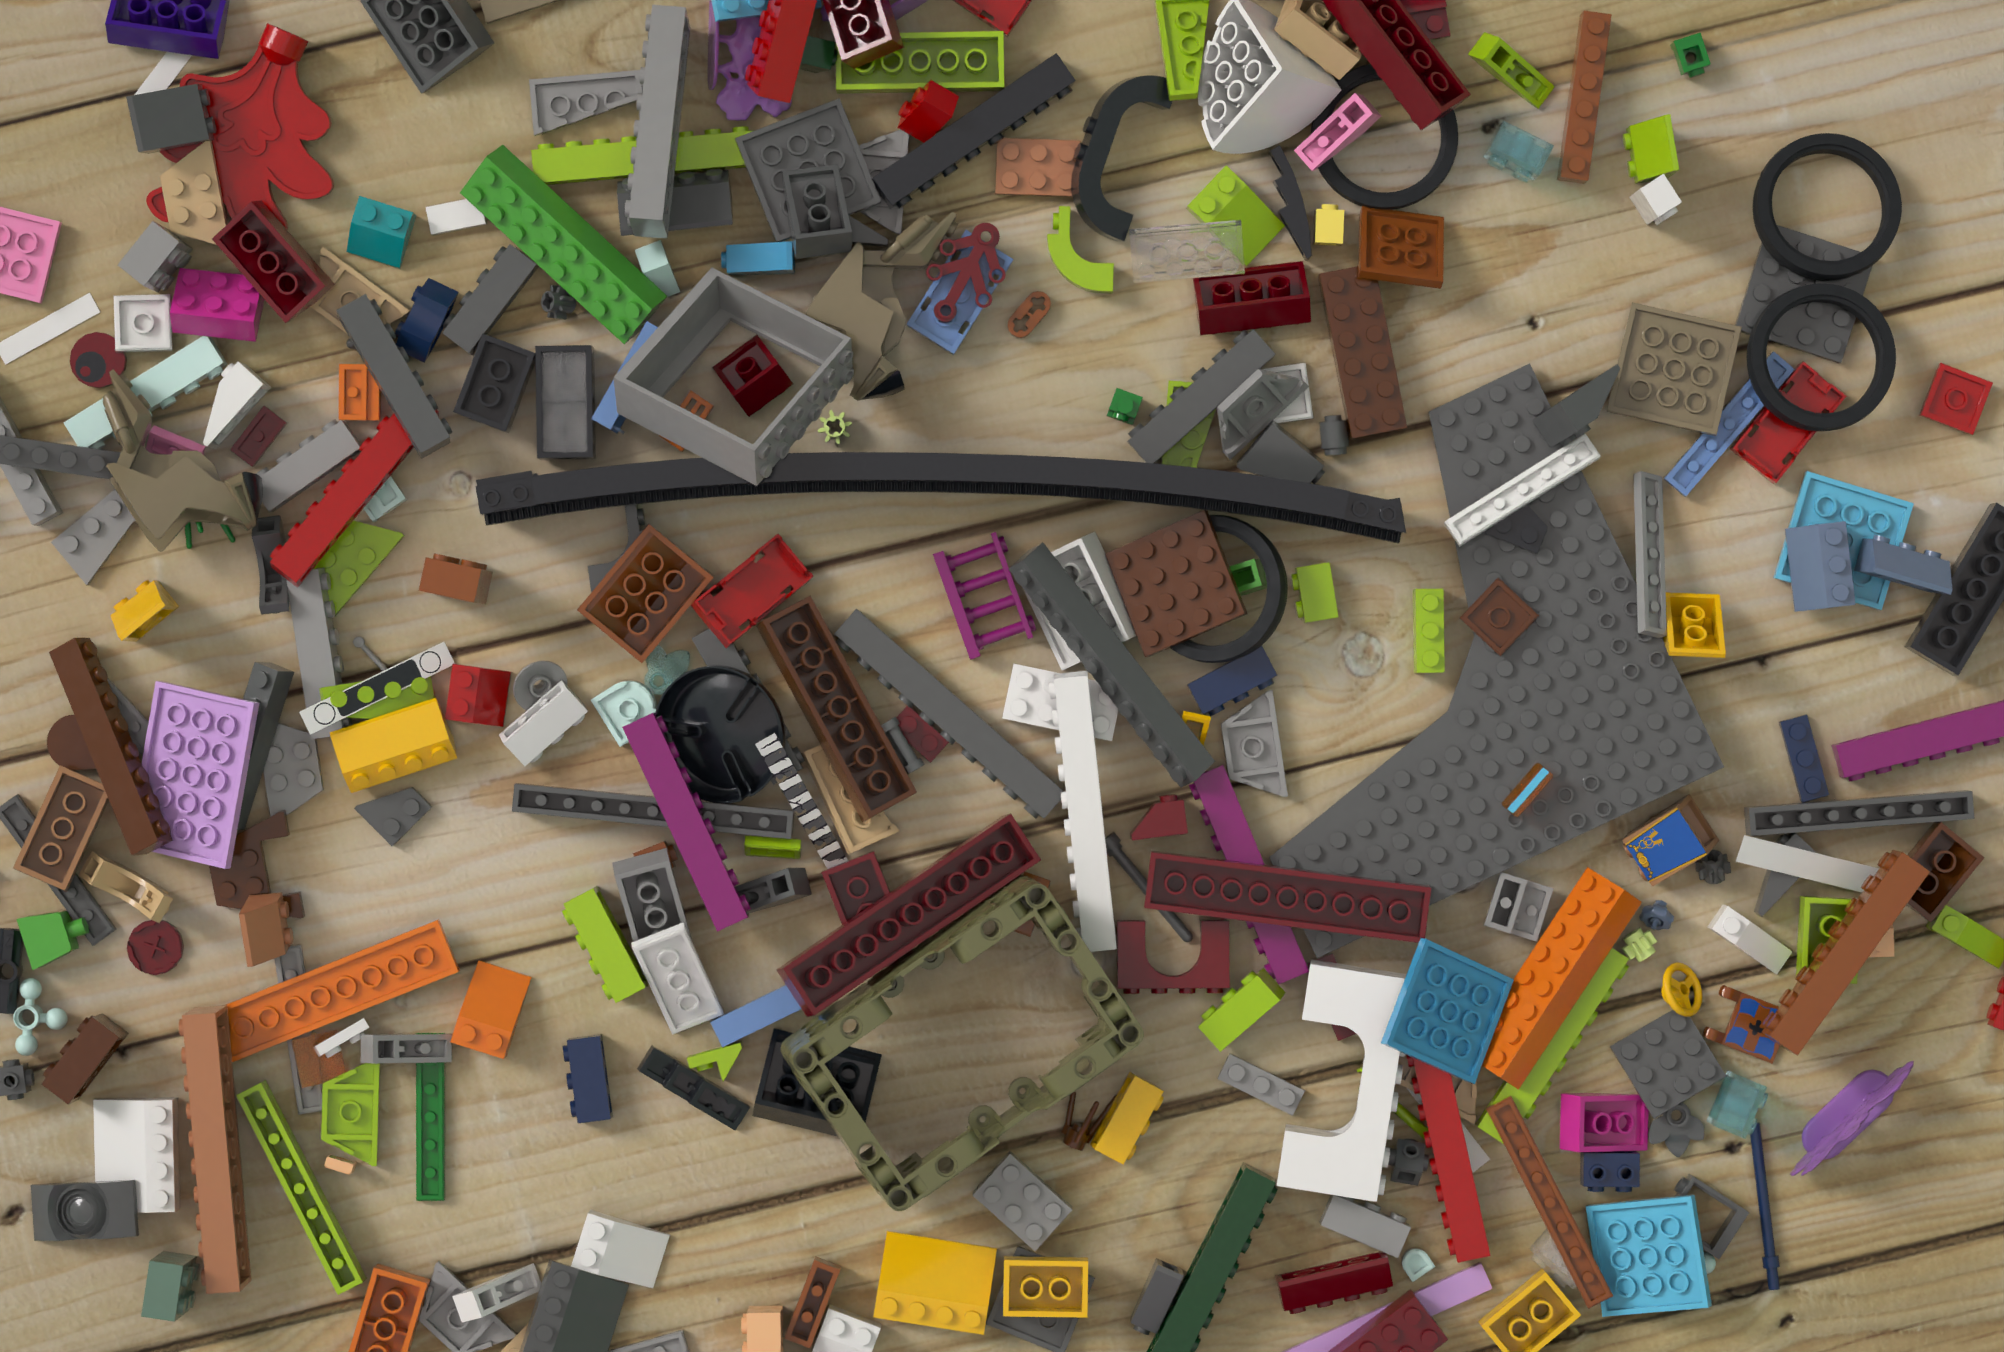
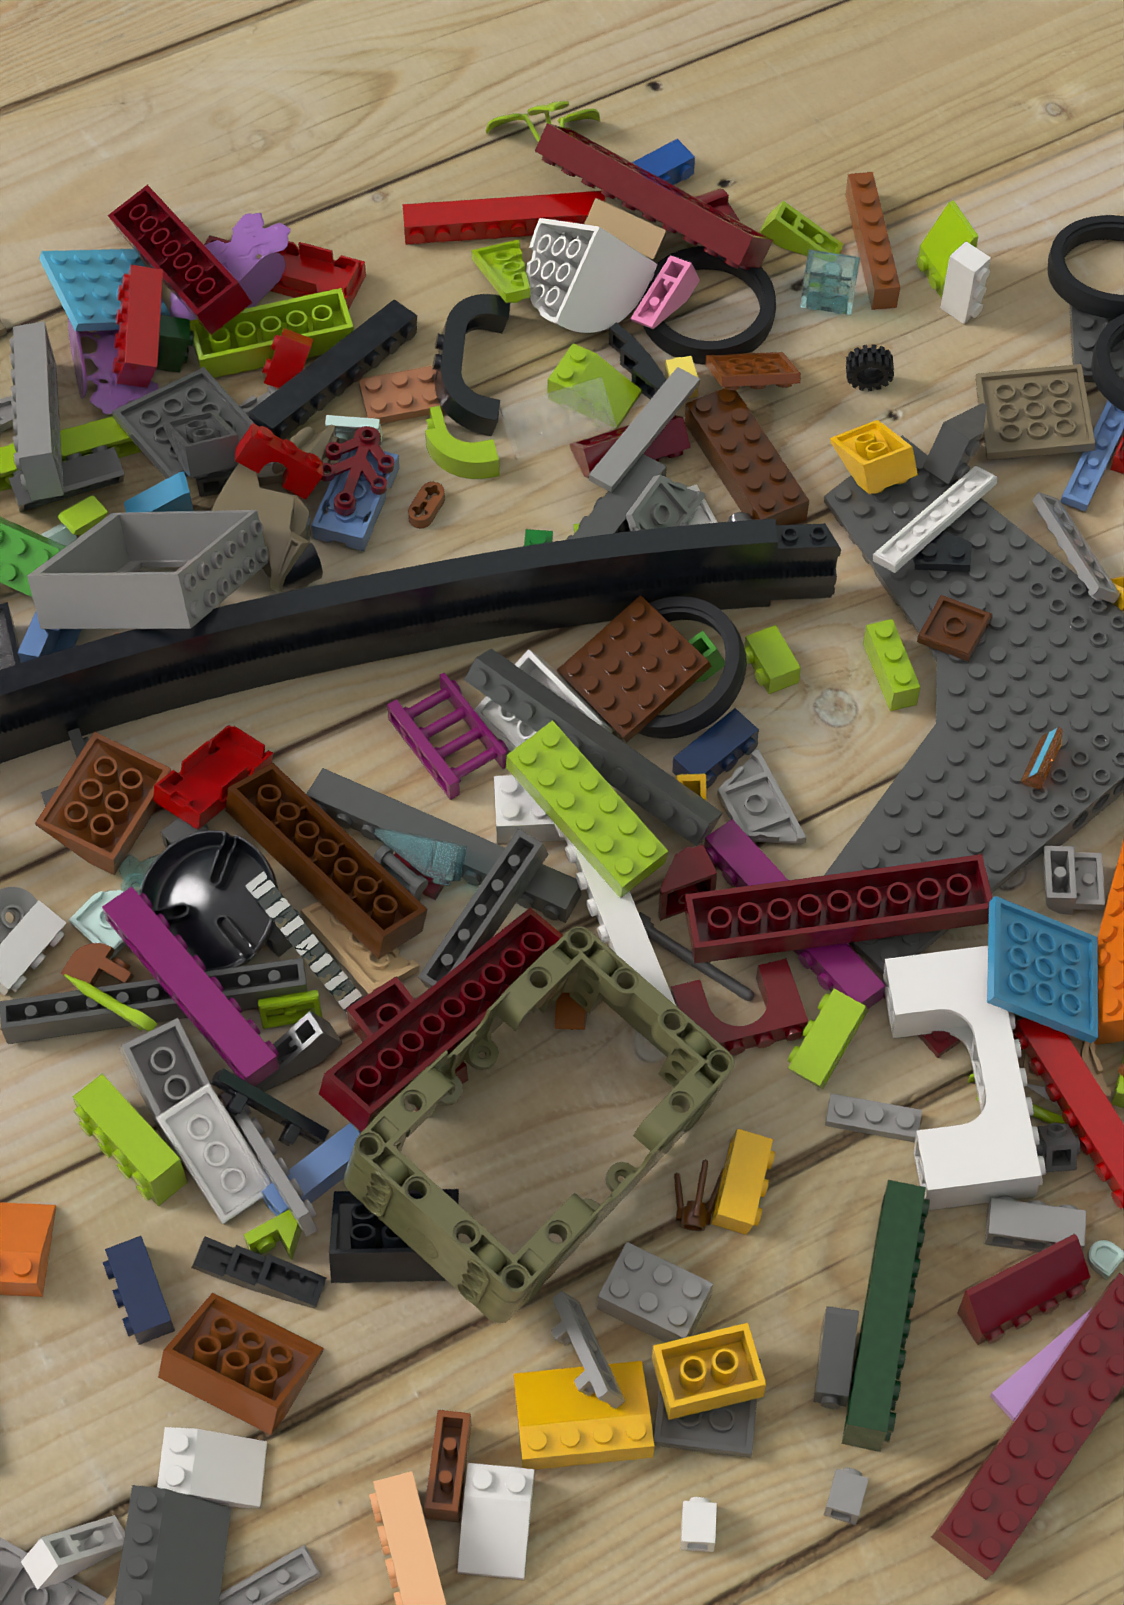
camera: 10 degrees left, 30 degrees down
(607, 754) = (94, 958): none -> dark orange brick
(631, 835) = (133, 1016): none -> lime piece
(662, 1164) = (239, 1362): none -> dark orange slope
(684, 260) = (83, 515): none -> lime slope
(726, 1012) = (275, 1169): none -> light grey plate
(750, 964) = (292, 1120): none -> black hinge
(873, 255) = (262, 447): none -> red arch
(930, 733) = (428, 855): none -> clear light blue slope
(954, 1260) = (576, 1329): none -> light grey hinge
(966, 811) = (487, 906): none -> dark grey brick
(976, 209) = (347, 426): none -> light aqua plate
(1083, 749) = (586, 809): none -> lime brick
(1266, 306) = (644, 429): none -> light grey tile
(1489, 390) = (875, 456): none -> yellow slope
(1523, 272) = (869, 367): none -> black tyre
(1694, 45) = (951, 188): green brick -> none

